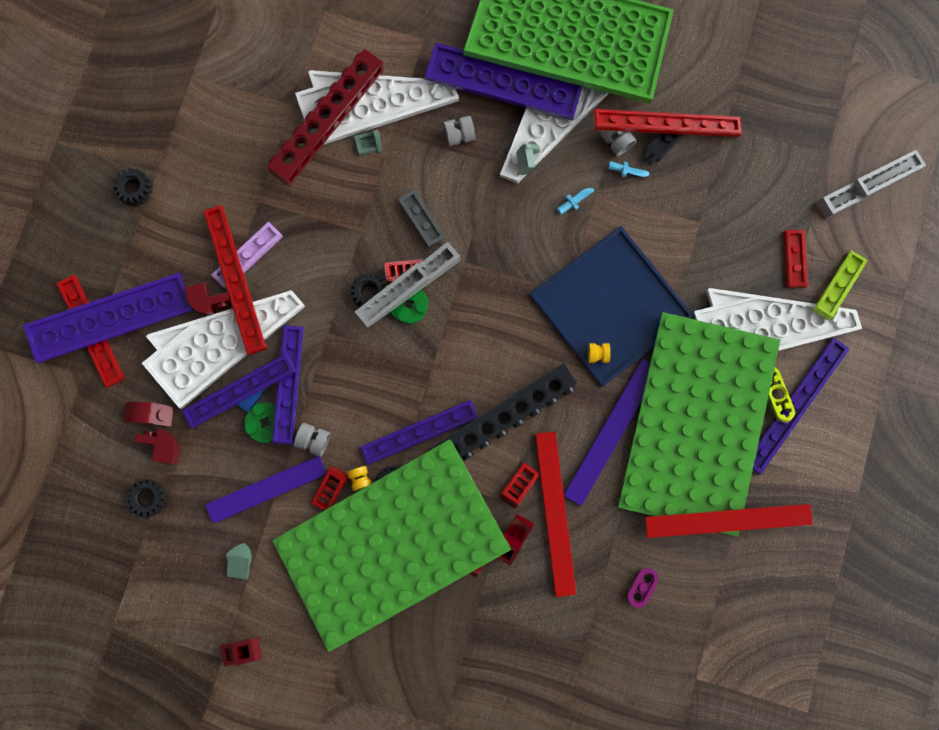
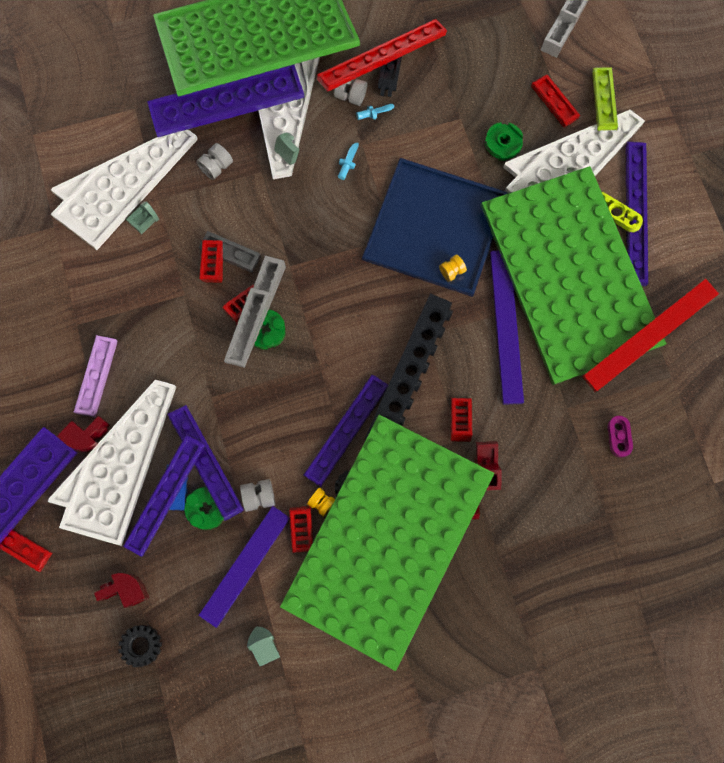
camera: 30 degrees left, 5 degrees down
(147, 413) = (92, 568): dark red brick -> none
(235, 280) = (99, 402): red tile -> none
(241, 651) = (317, 725): dark red brick -> none
(301, 157) = (87, 281): dark red brick -> none
(362, 281) = (214, 332): black tyre -> none
(405, 221) = (218, 269): none -> red slope
(555, 514) = (507, 424): red tile -> none
(728, 258) = (504, 131): none -> green plate

